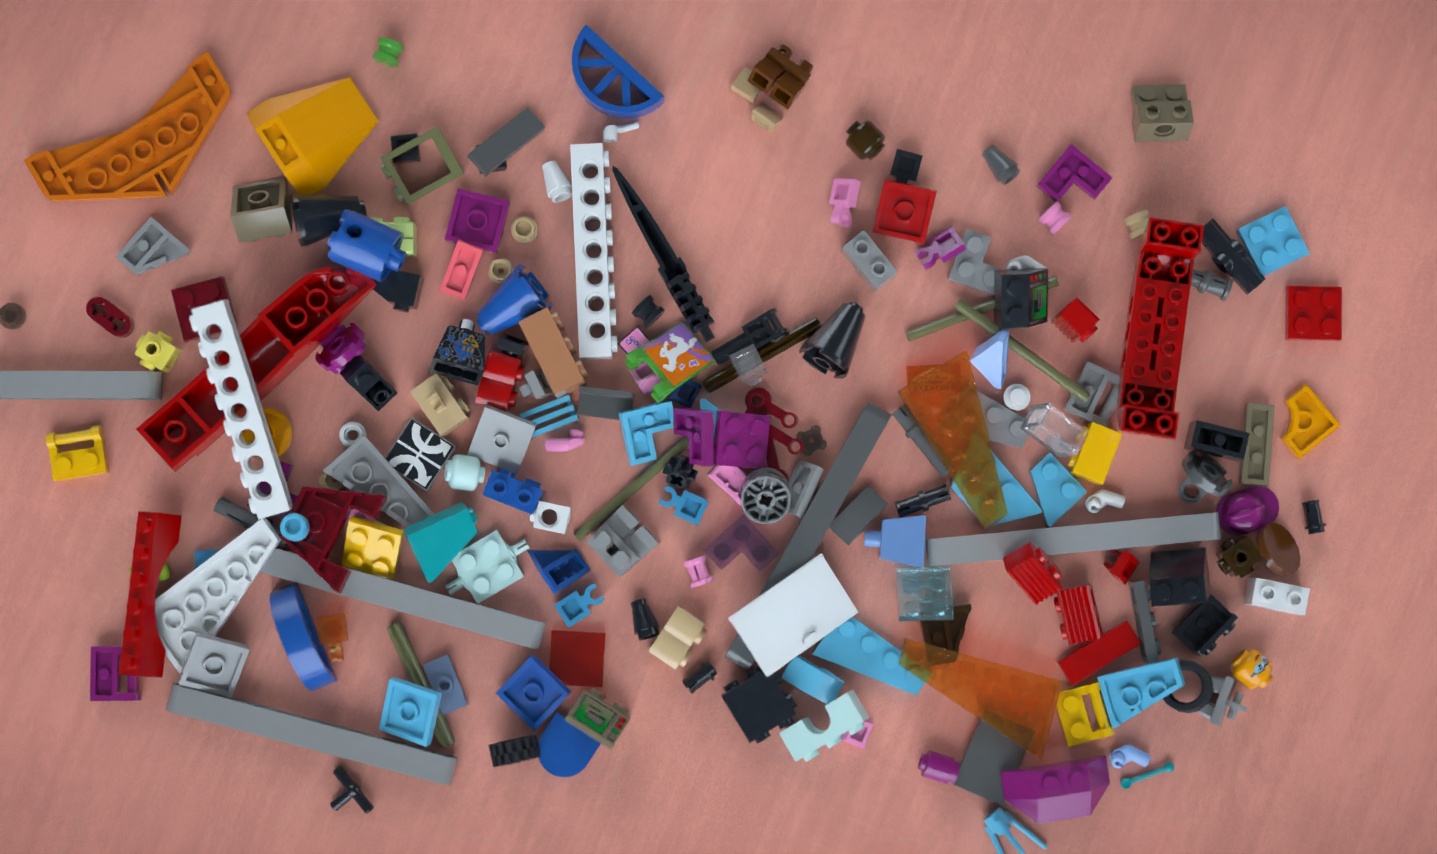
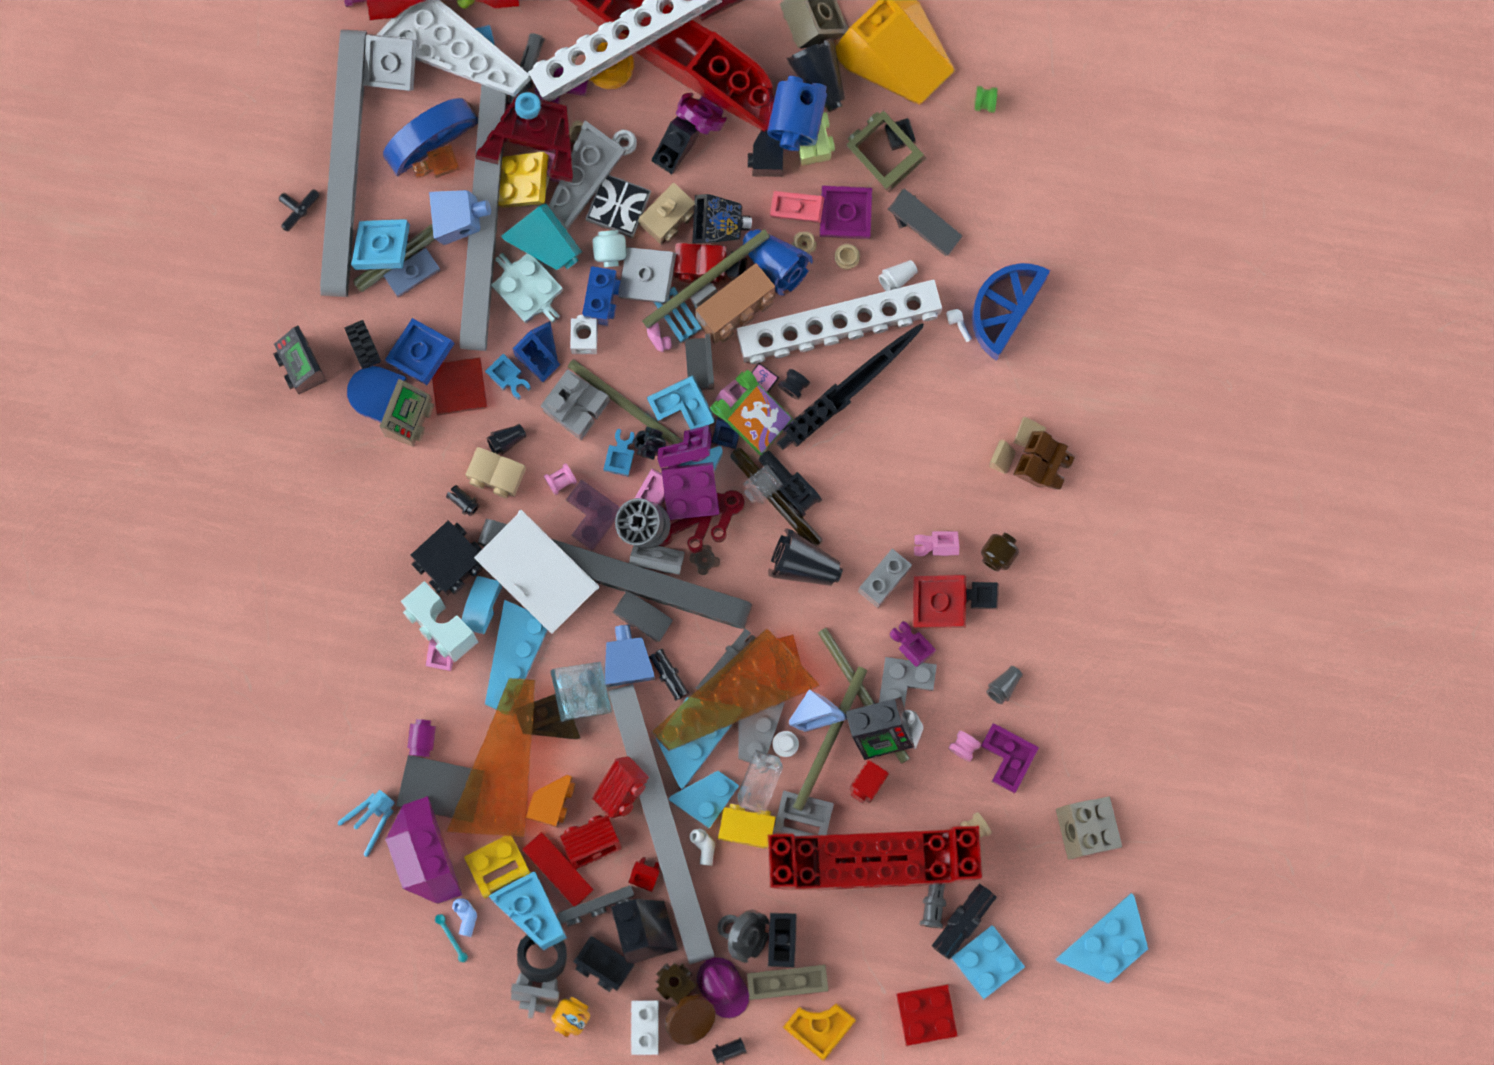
camera: 75 degrees right, 5 degrees down
(397, 625) = (456, 214): none -> medium blue torso
(518, 821) = (298, 360): none -> black slope
(520, 378) = (706, 278): none -> olive piece
(1029, 648) = (549, 802): none -> orange slope
(1277, 119) = (1108, 944): none -> medium azure wing

